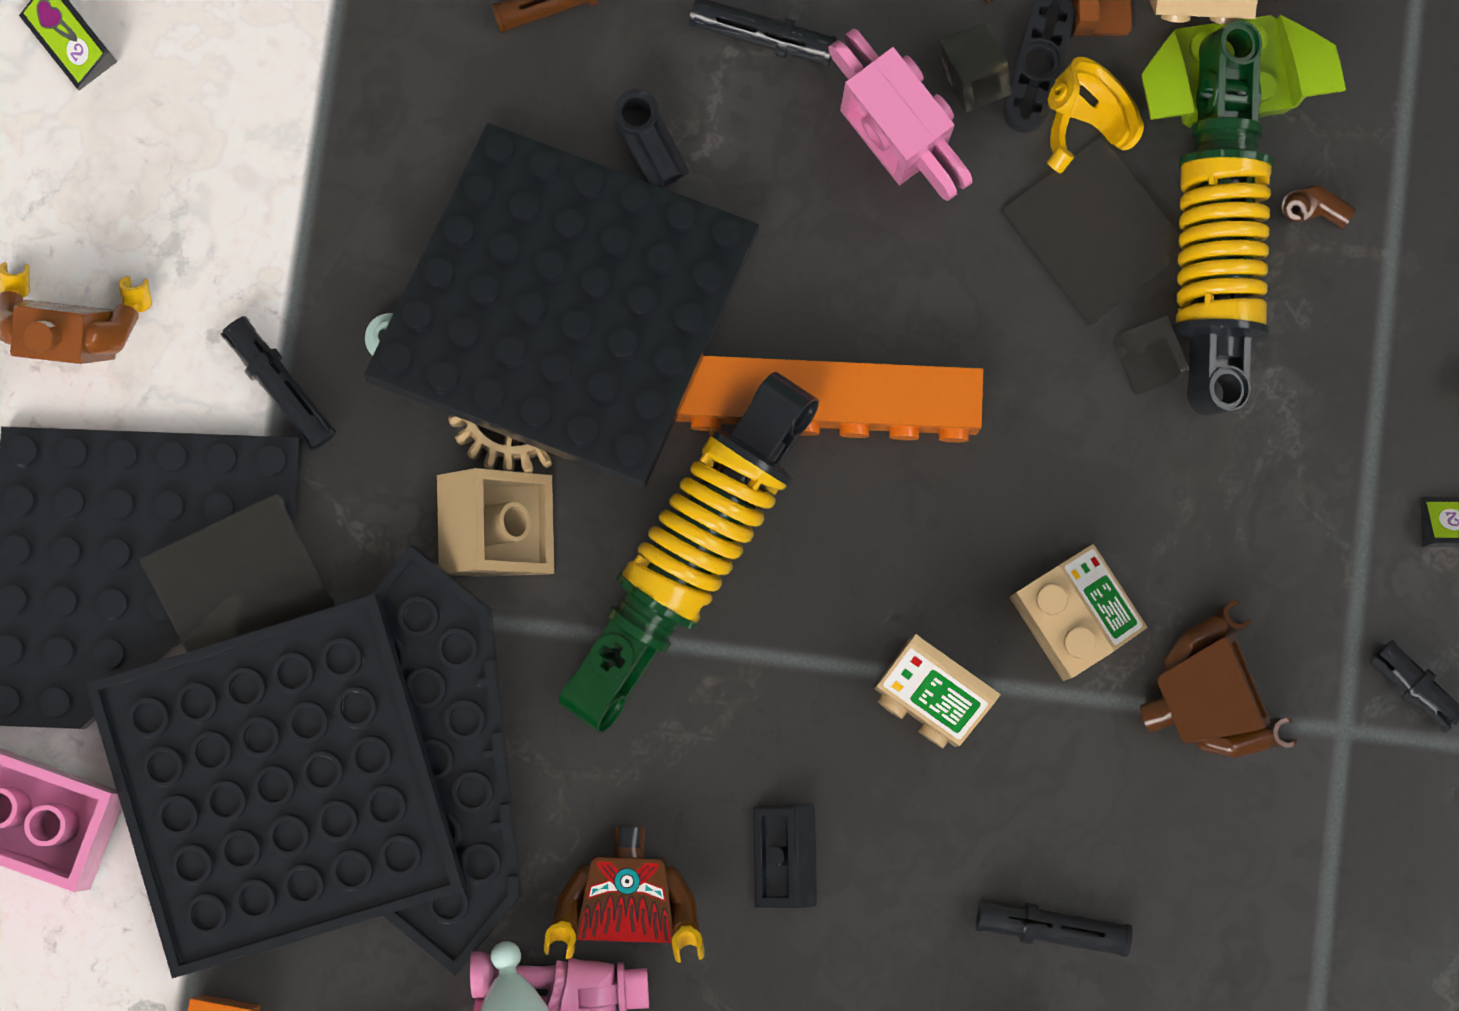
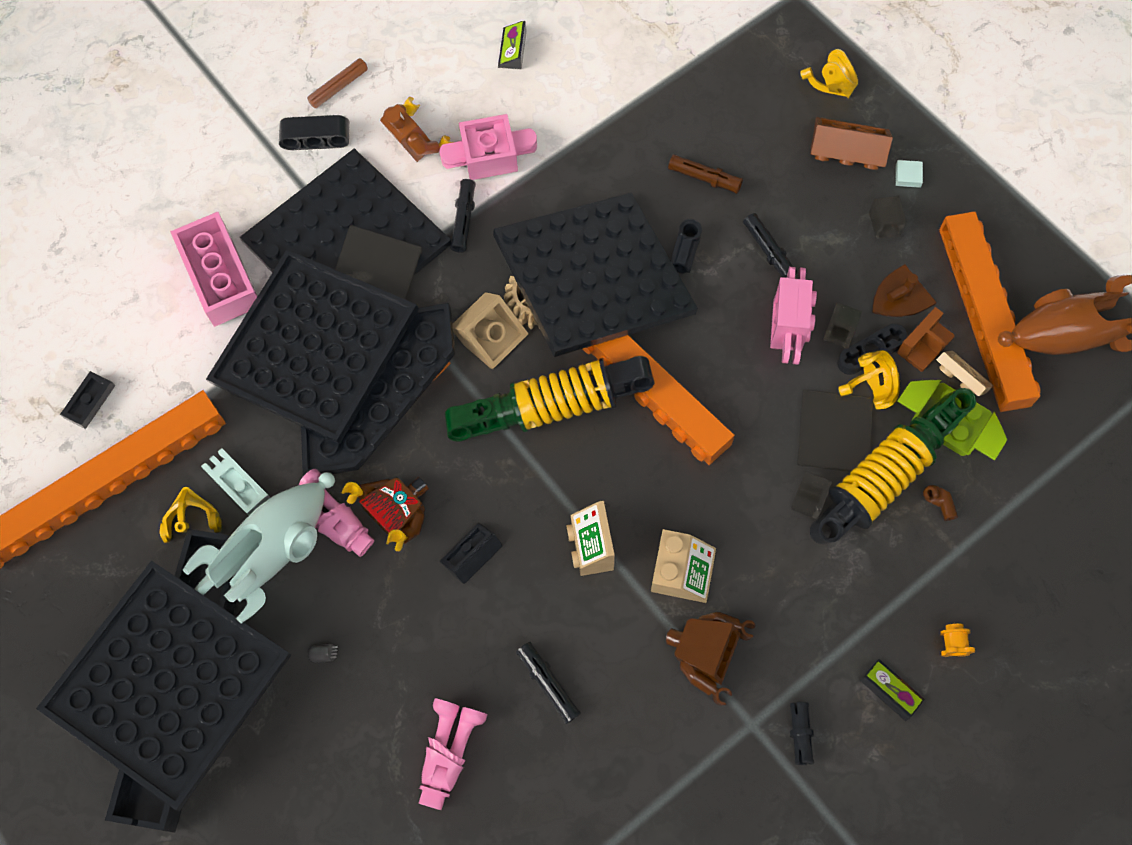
camera: 50 degrees right, 15 degrees down
(210, 243) = (486, 136): none -> bright pink brick

